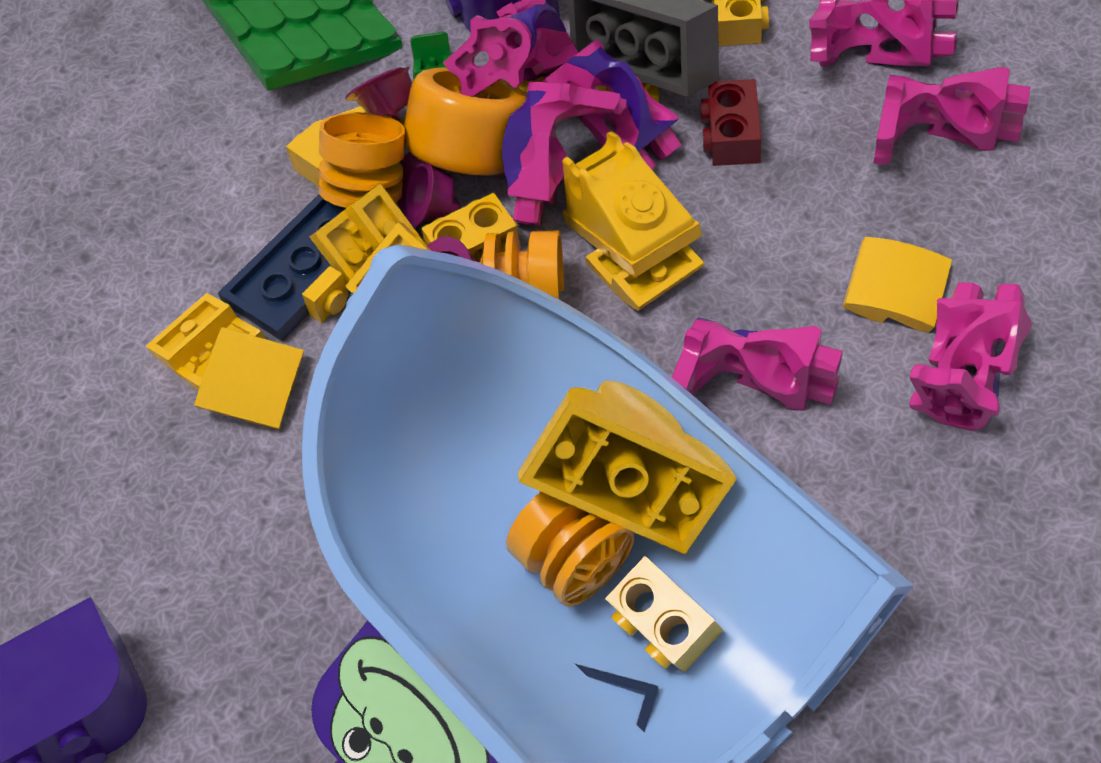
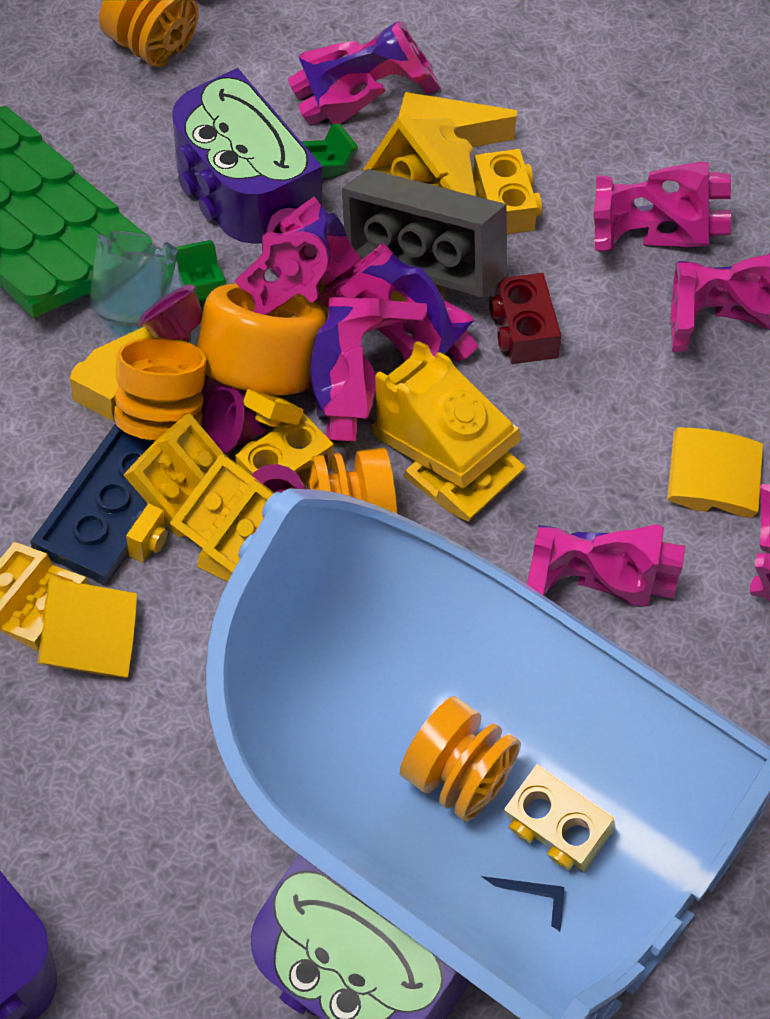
camera: 20 degrees left, 0 degrees up
(356, 54) = (129, 277): none -> clear light blue cylinder
(461, 186) = (272, 408): none -> yellow plate
(628, 464) = (515, 679): yellow brick -> none

